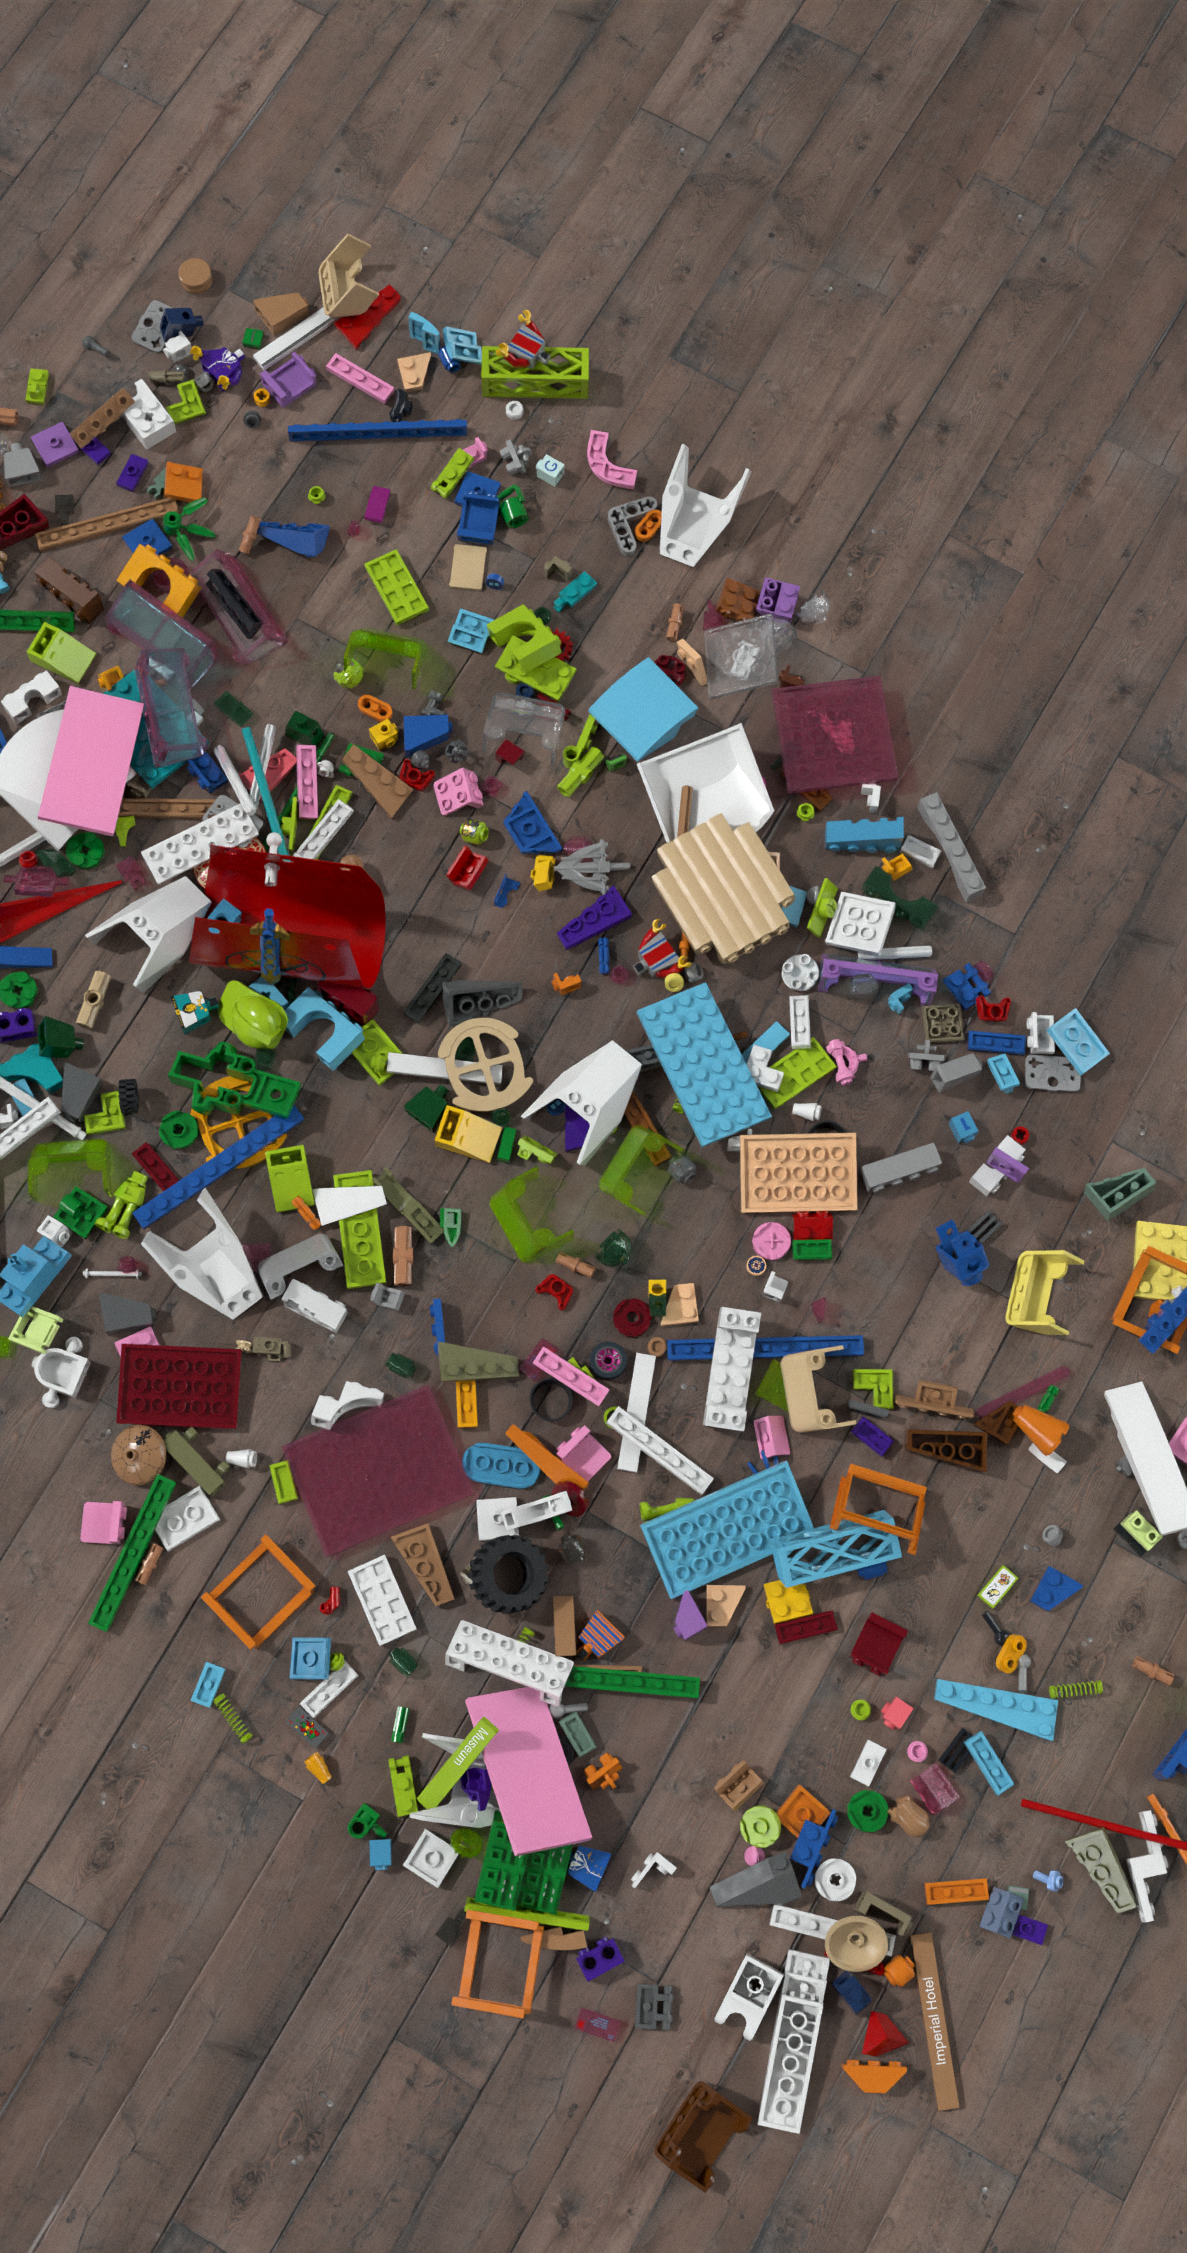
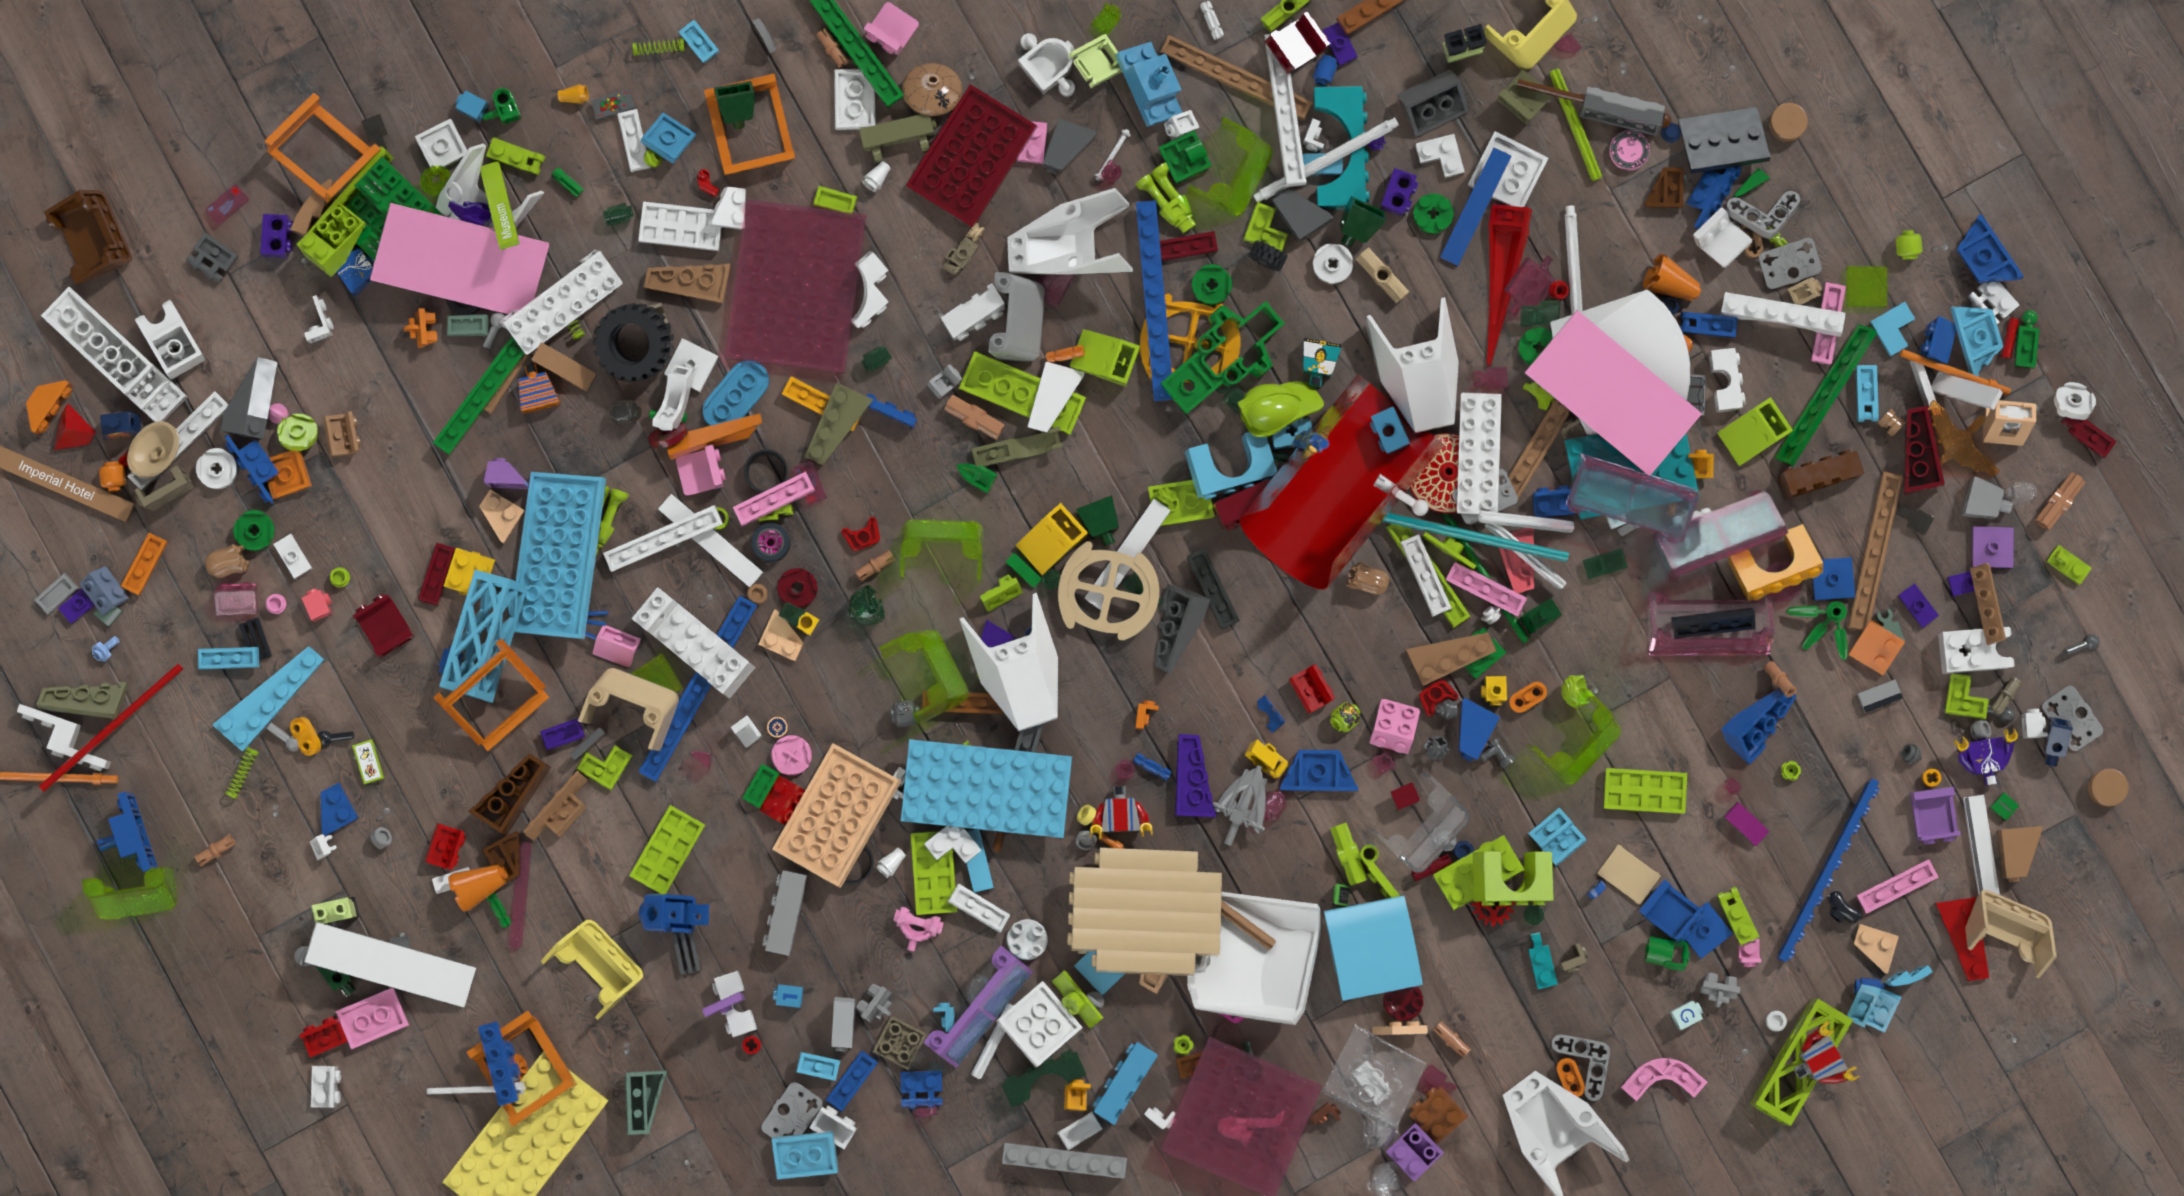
camera: 120 degrees right, 10 degrees up
(101, 1035) = (1344, 264): none -> white plate
(170, 1629) = (764, 34): none -> light grey tile
(220, 464) = (1879, 696): none -> light grey tile
(245, 1613) = (736, 103): none -> dark green torso
(342, 1565) = (729, 209): none -> white wing
(573, 1900) = (332, 239): none -> lime slope
(911, 1293) = (667, 850): none -> lime plate
(993, 1012) = (882, 1096): red piece -> none
(1025, 1476) = (445, 846): none -> red bracket
(1030, 1955) = (56, 594): none -> light grey tile
(1092, 1581) = (320, 846): none -> white tile

